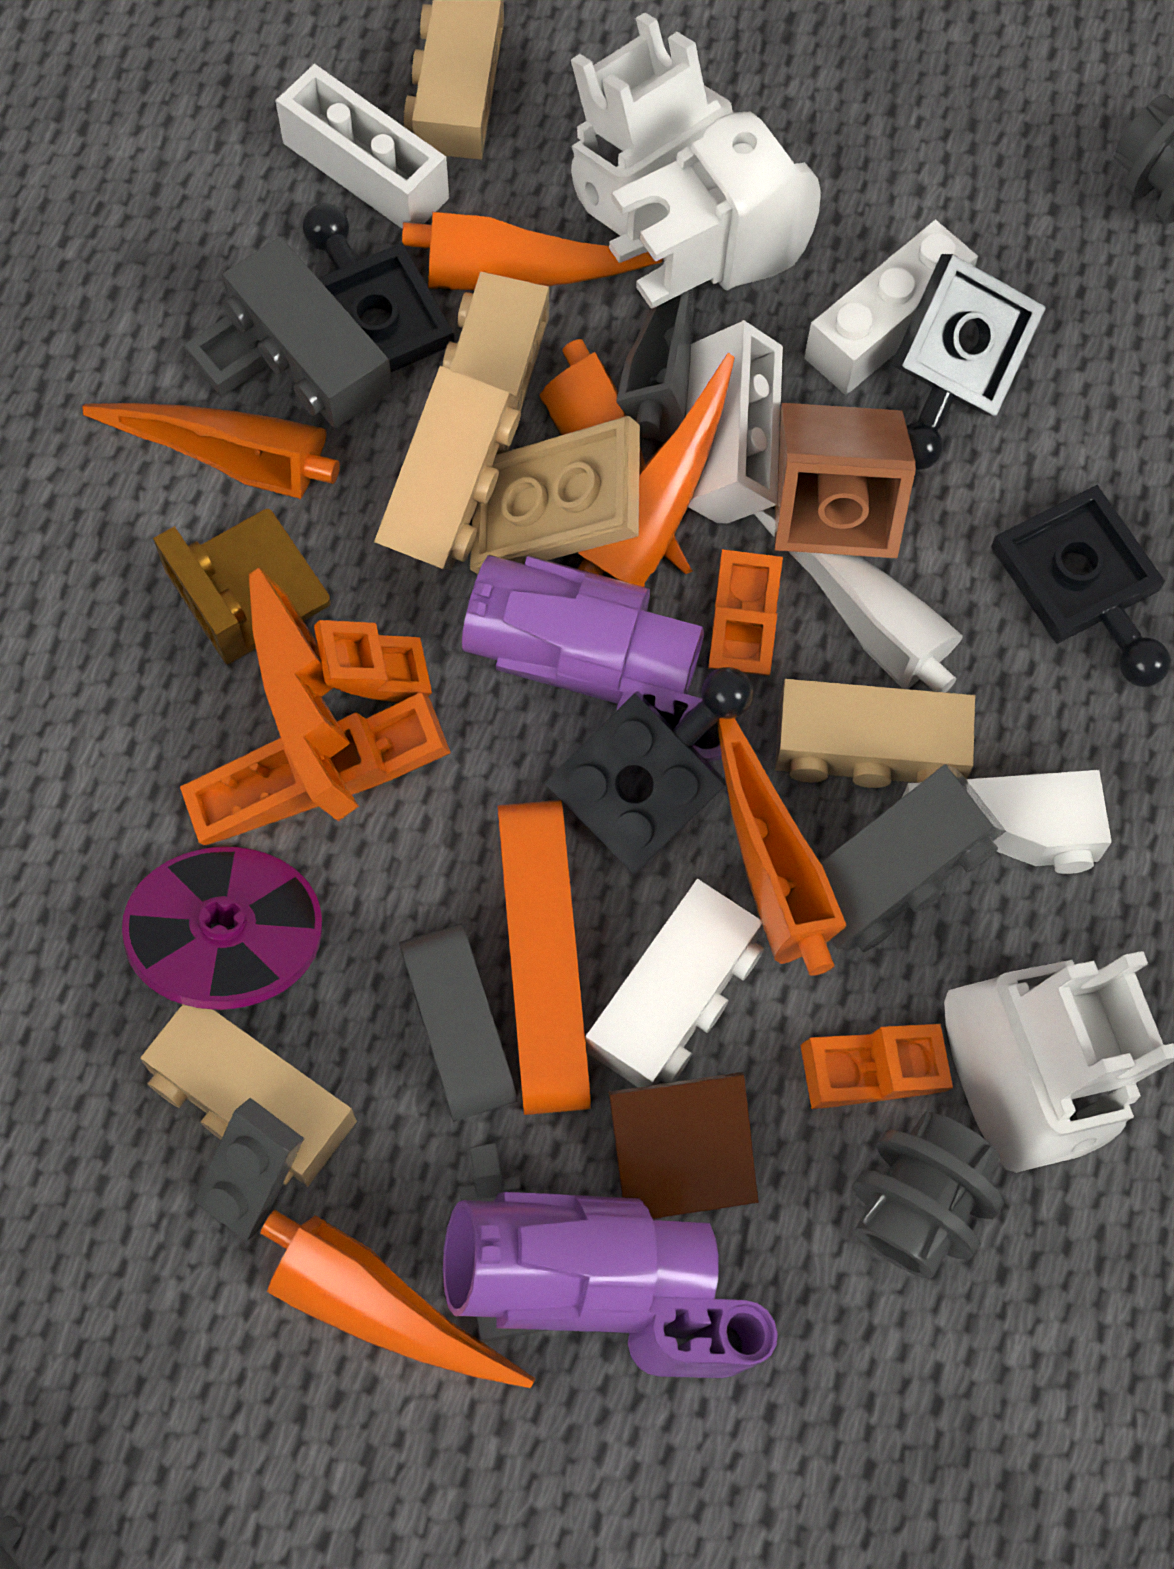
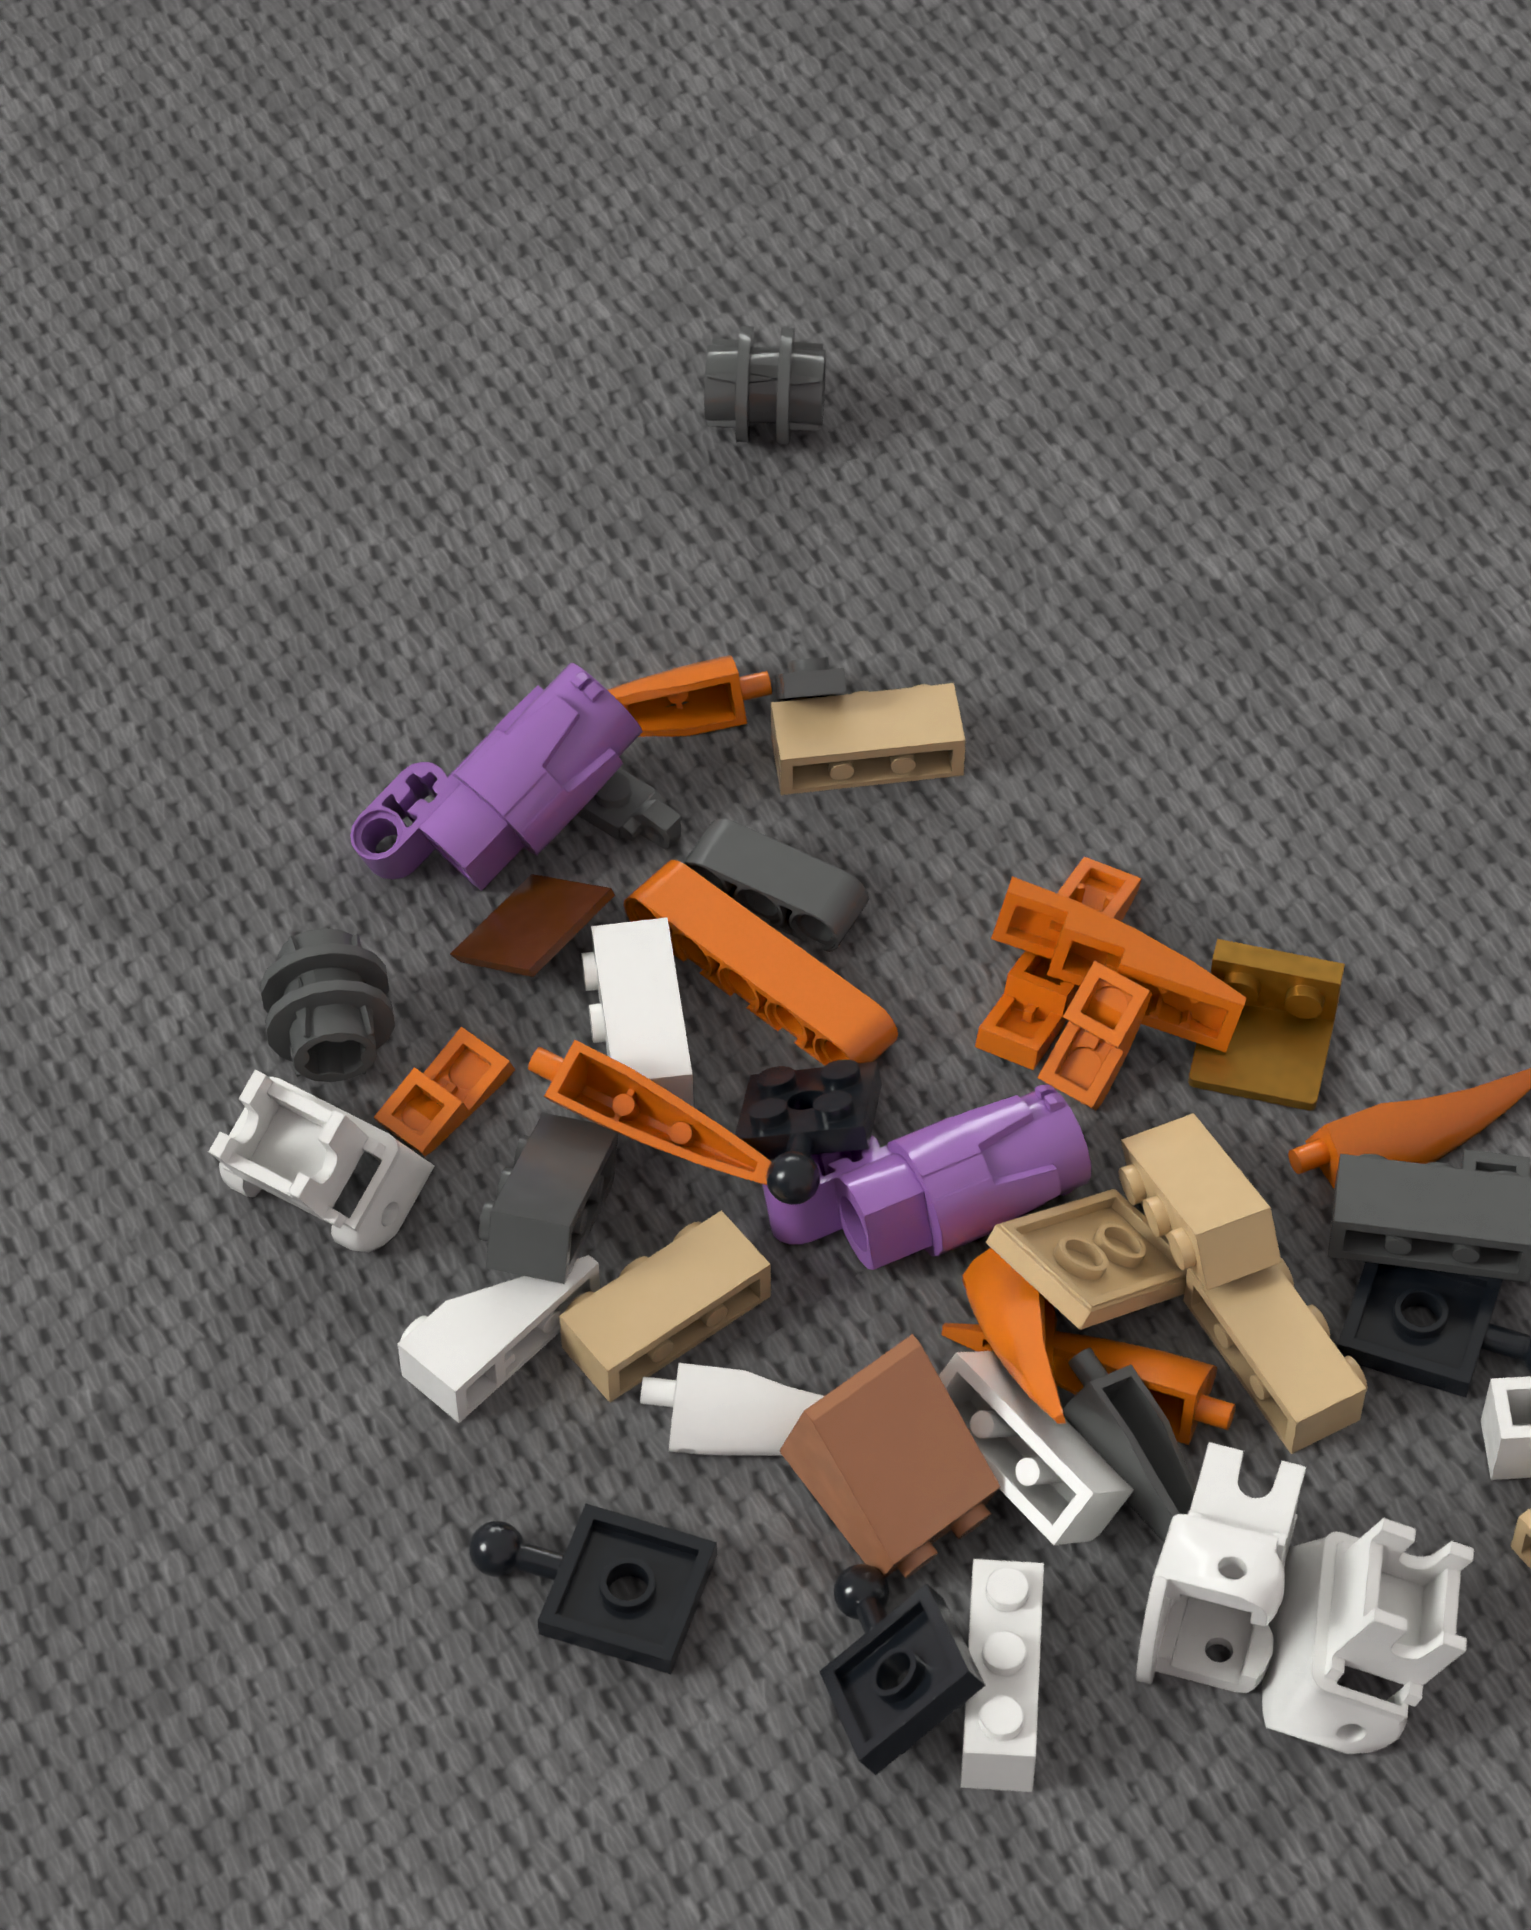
camera: 140 degrees right, 15 degrees down
(218, 968) = (1035, 780): magenta piece -> none
(473, 244) = (1390, 1458): orange piece -> none
(745, 612) = (852, 1317): orange slope -> none

